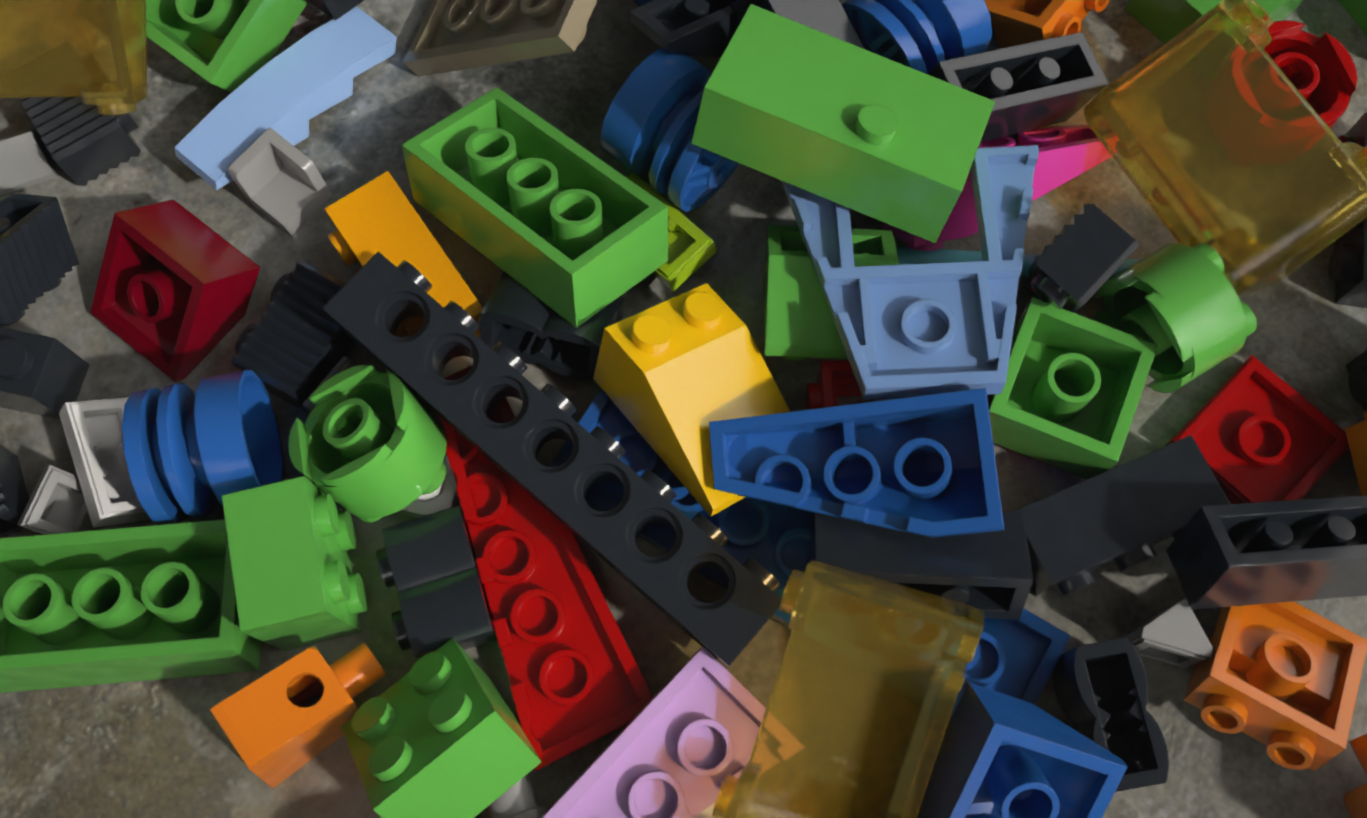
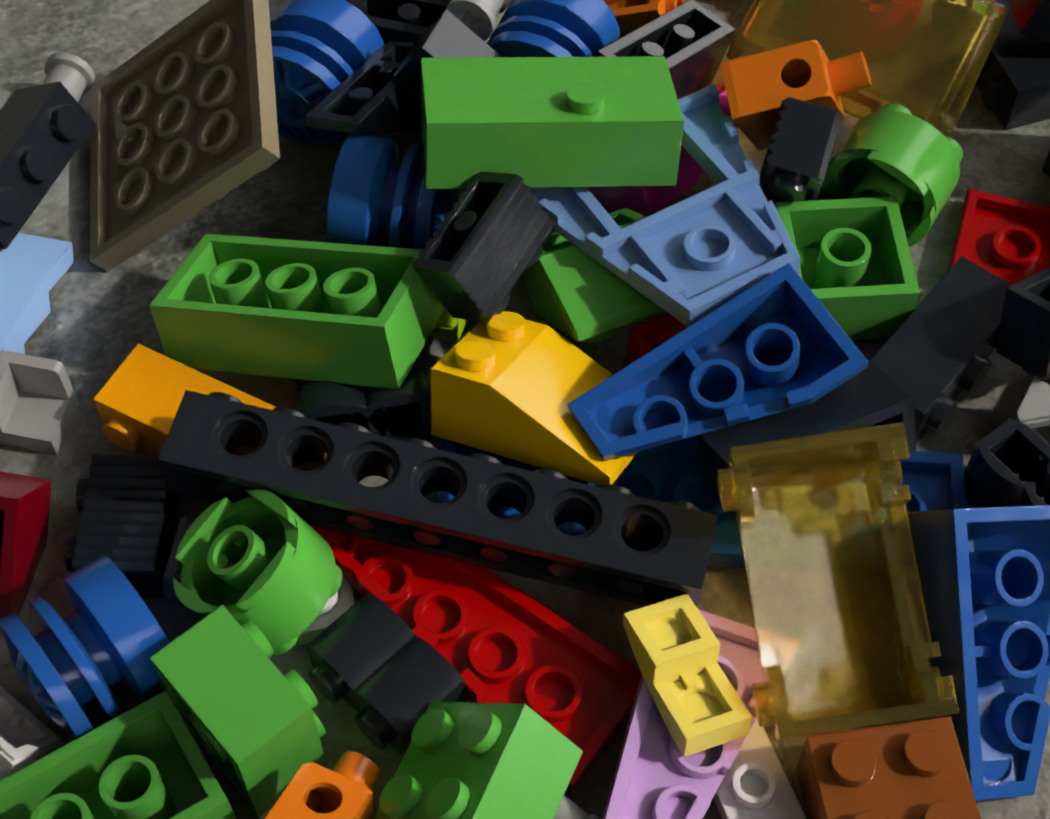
camera: 30 degrees left, 15 degrees down
(675, 733) = (683, 675): none -> light yellow slope
(716, 226) = (484, 246): none -> black brick
(1122, 180) = (797, 71): none -> orange torso

